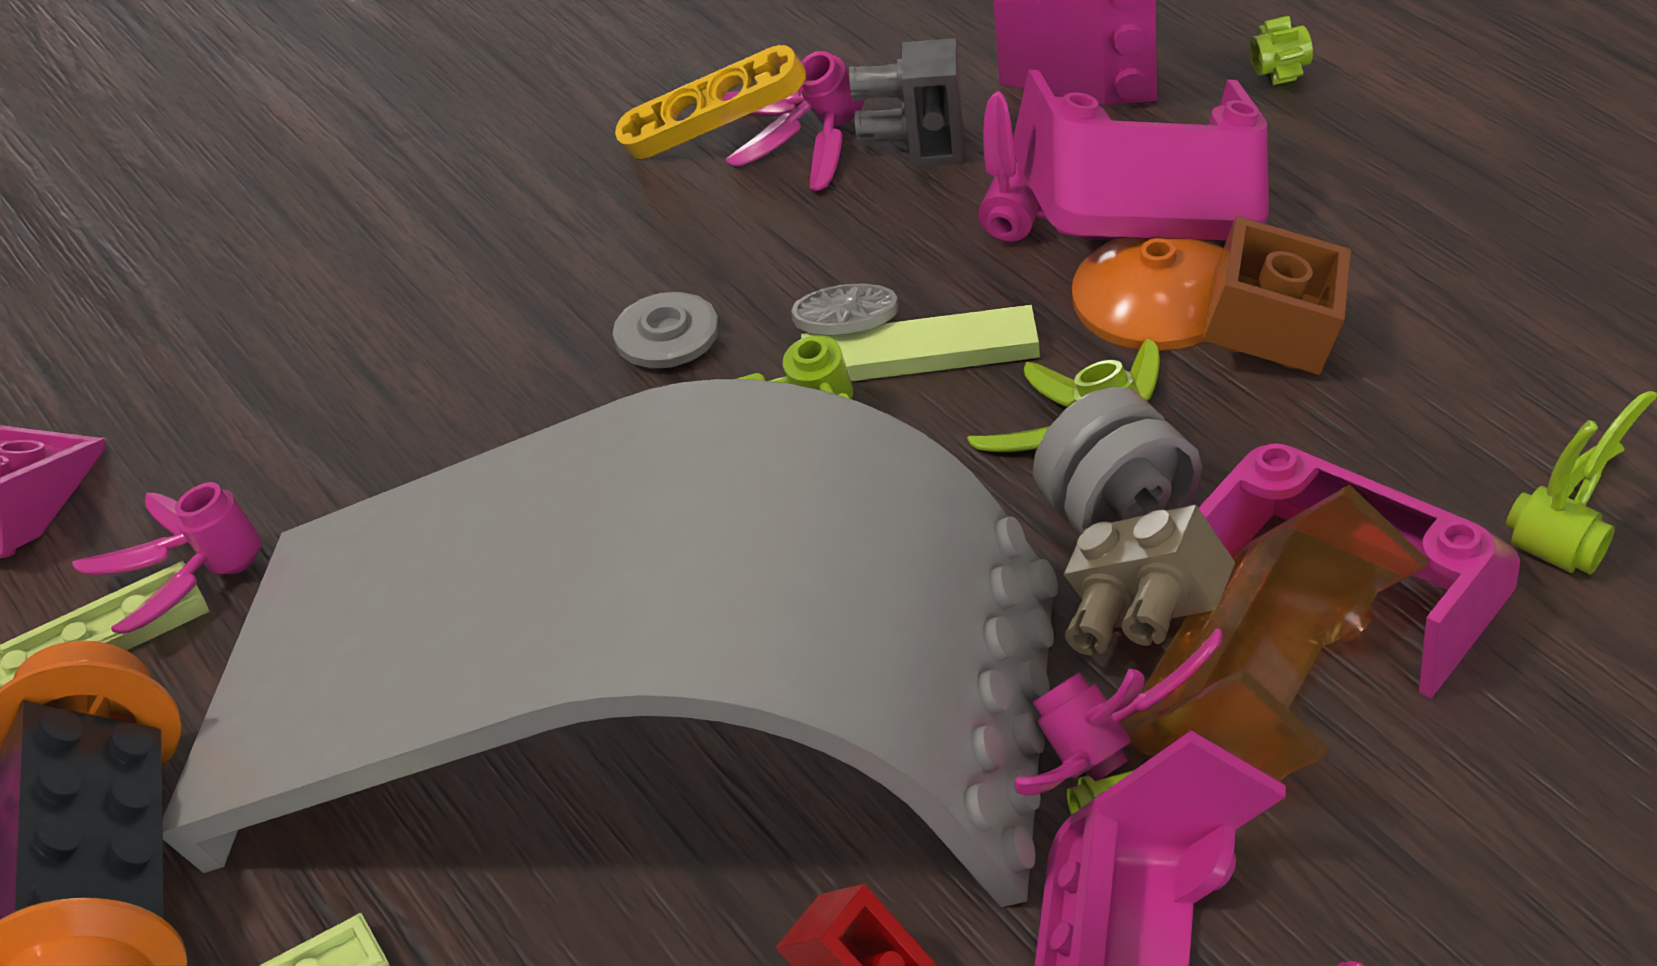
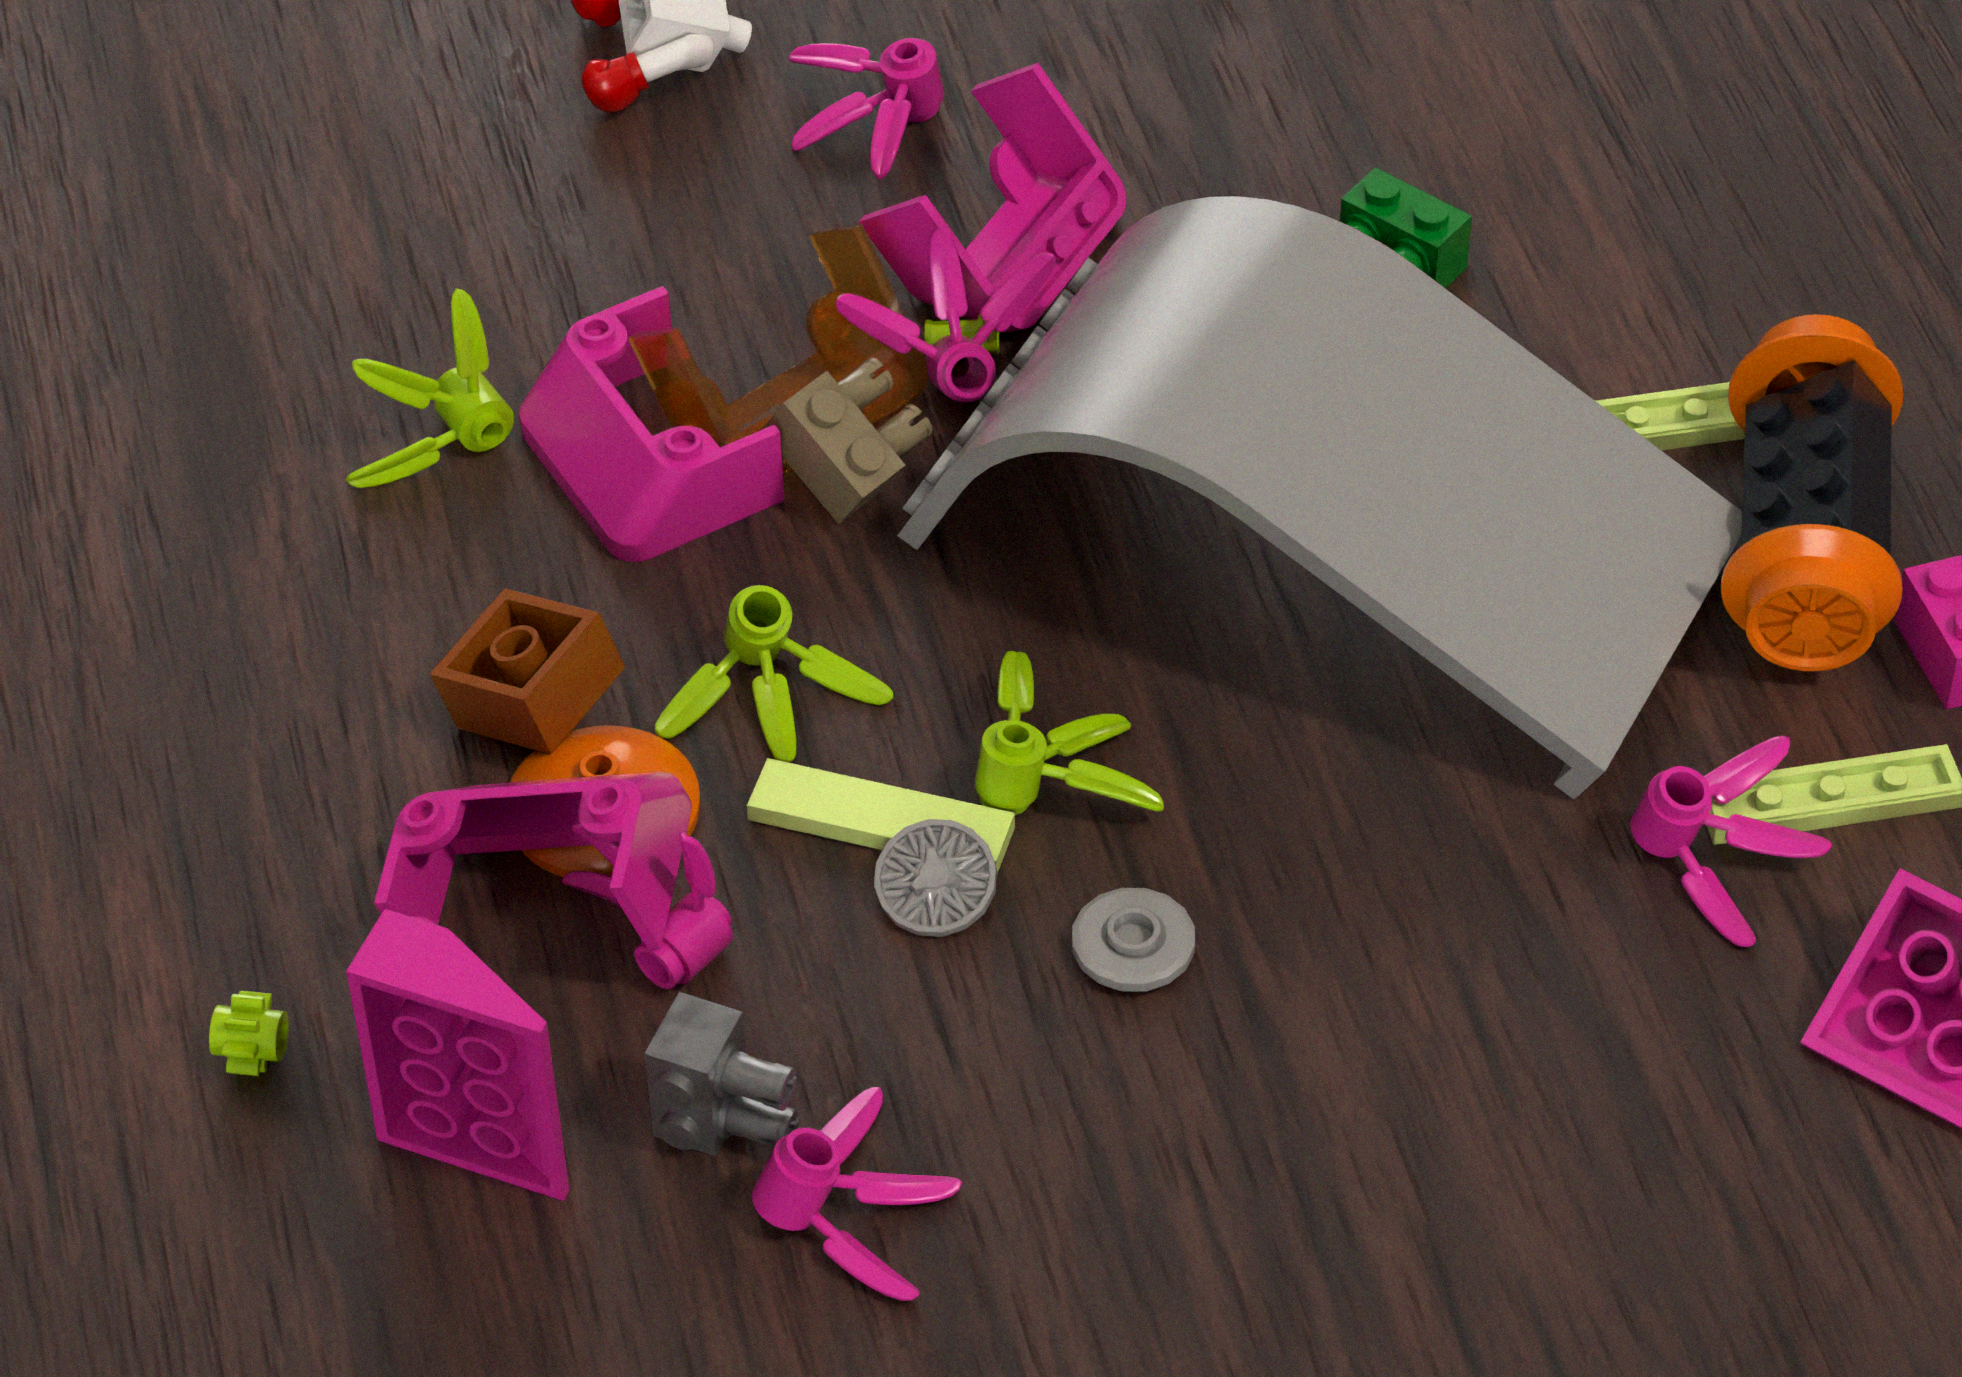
camera: 165 degrees left, 5 degrees up
(643, 127) = (951, 1212): yellow beam -> none
(1114, 460) = (803, 531): light grey wheel -> none

